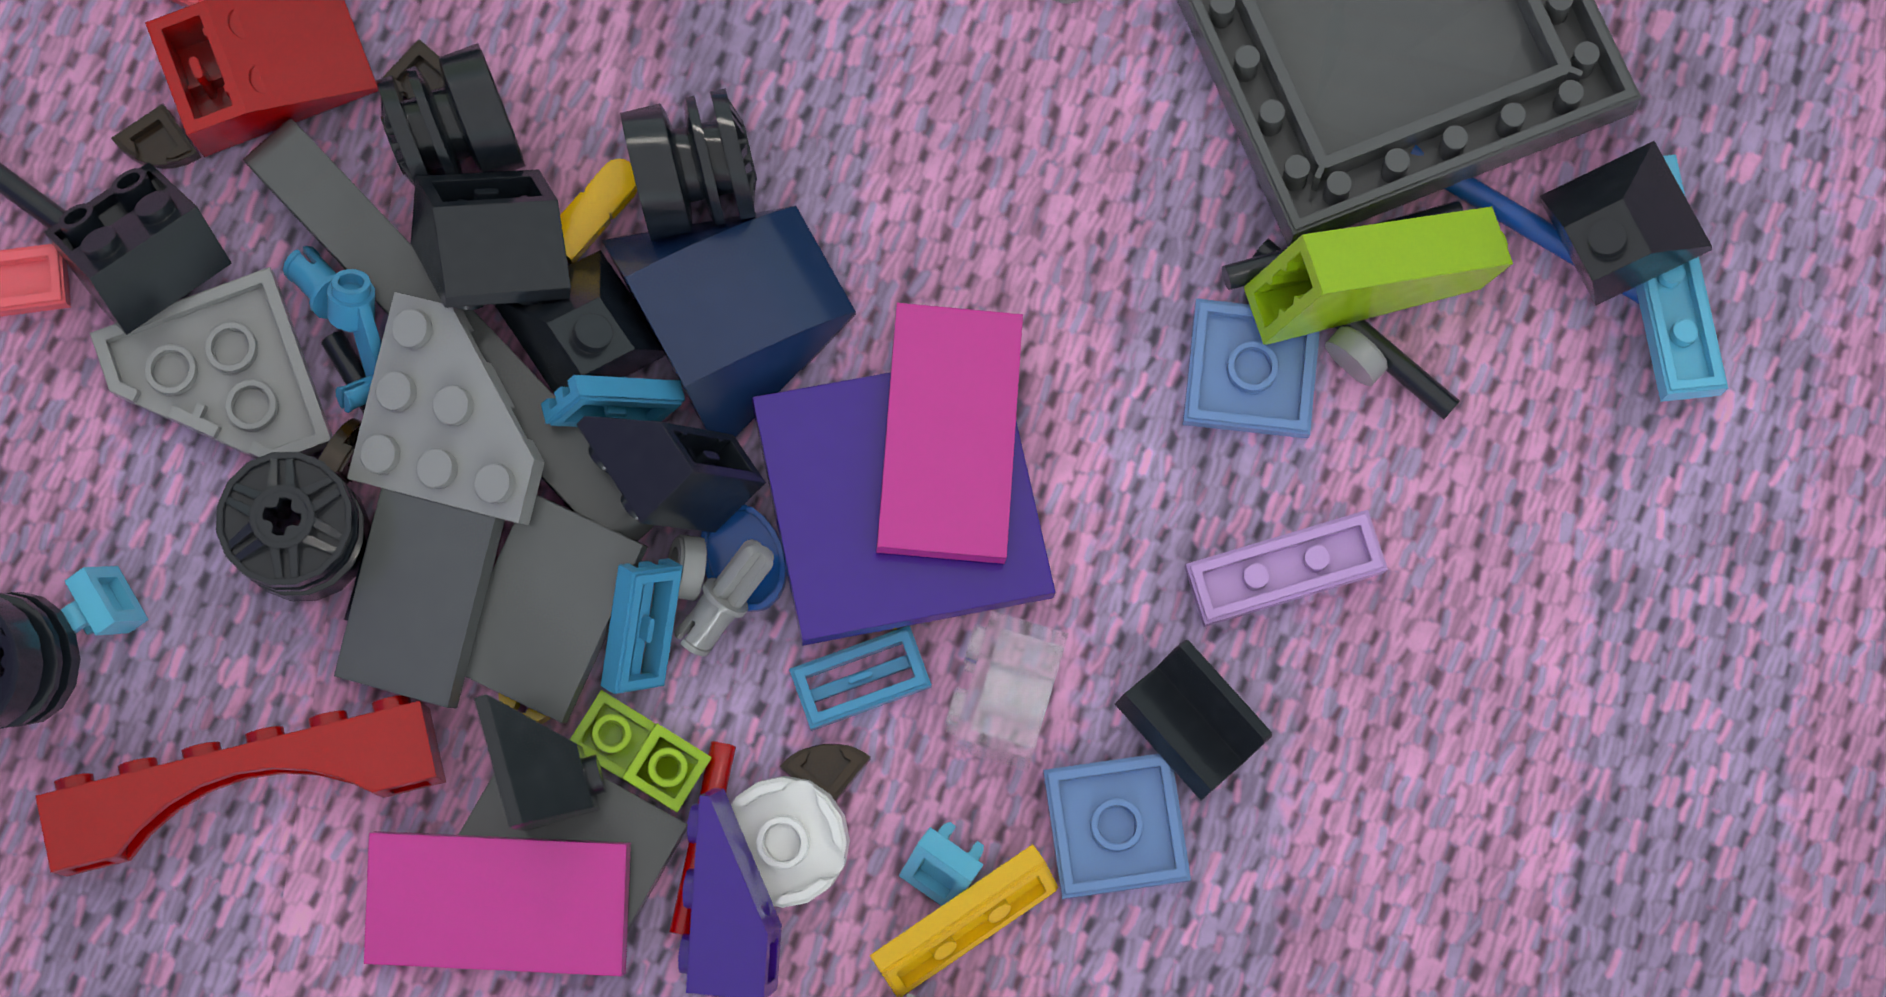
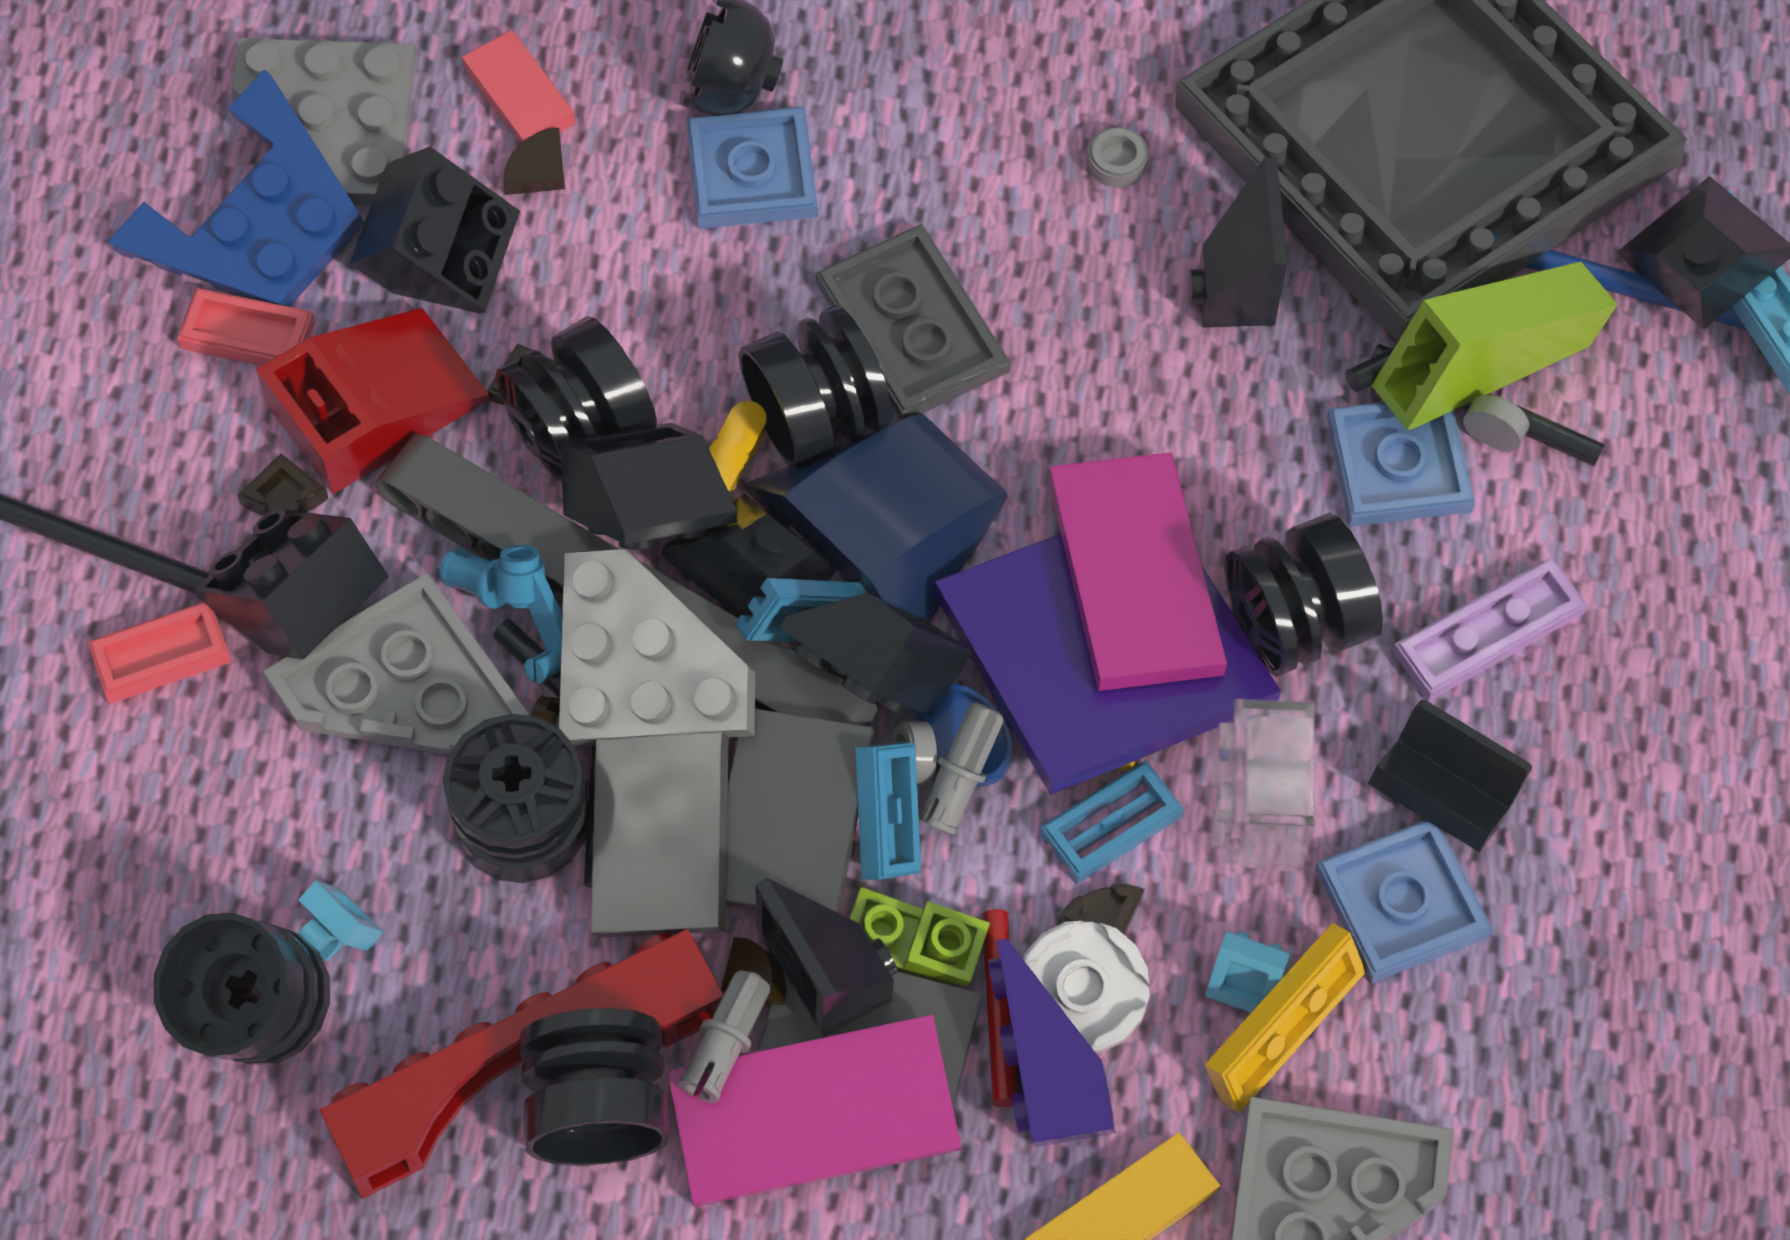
camera: 15 degrees left, 15 degrees down
(291, 836) = (593, 1087): none -> black wheel
(428, 815) = (726, 1035): none -> light grey axle
(469, 754) = (749, 957): none -> dark brown tile
(813, 105) = (915, 321): none -> dark grey tile
(1103, 501) = (1304, 594): none -> black wheel
(1152, 120) = (1244, 257): none -> black slope

